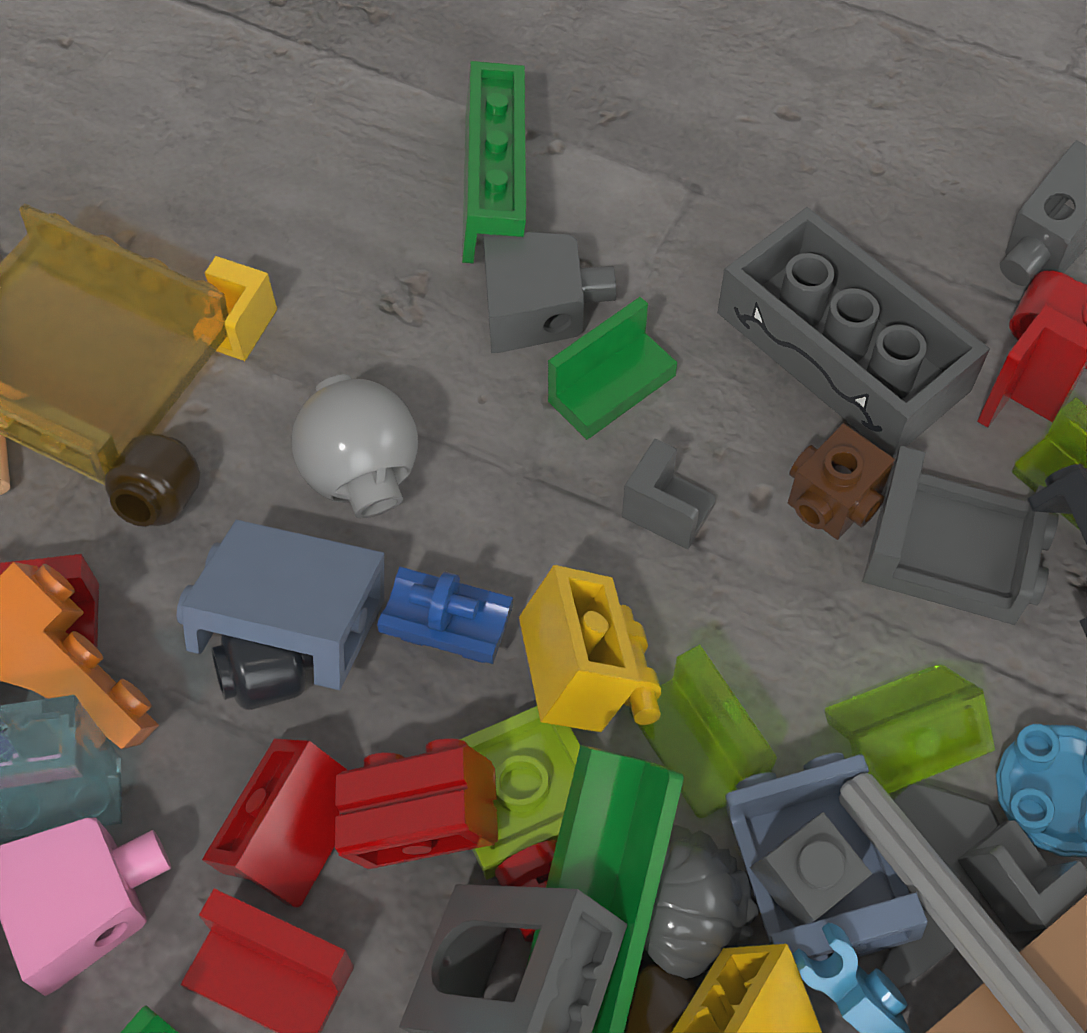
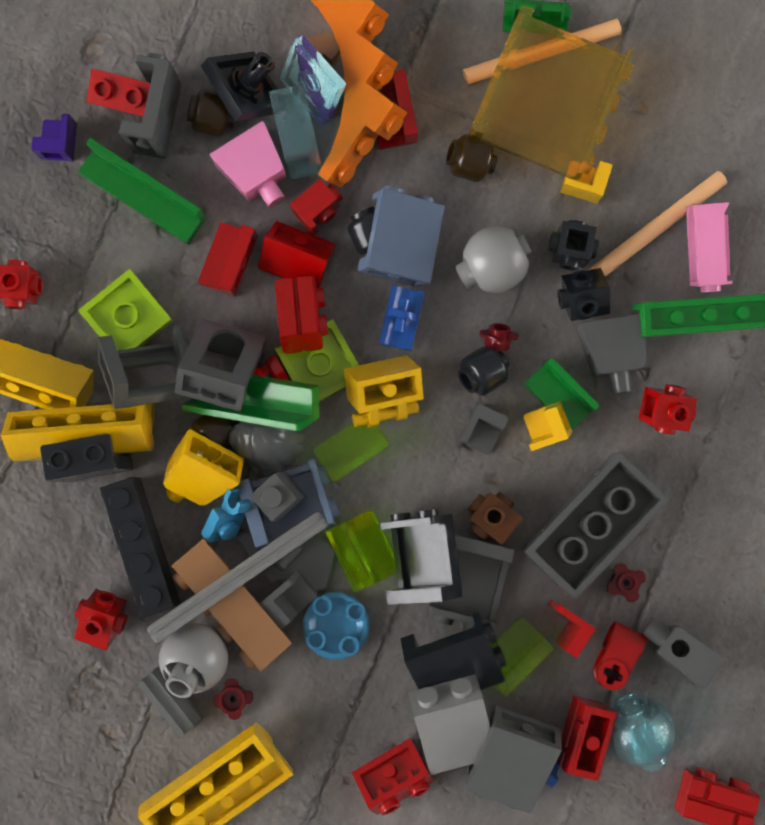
camera: 90 degrees right, 25 degrees up
(190, 768) = (316, 205): none -> red brick
(336, 228) = (660, 223): none -> light nougat piece
(346, 325) = (581, 236): none -> black brick
(379, 149) = (708, 246): none -> bright pink window
(437, 317) = (584, 294): none -> black brick
(498, 459) = (498, 336): none -> dark red plate
(560, 486) = (483, 370): none -> black head
(647, 217) = (668, 409): none -> red brick
(670, 390) = (547, 425): none -> yellow panel
(928, 602) = (424, 558): none -> panel
(947, 297) = (635, 579): none -> dark red plate

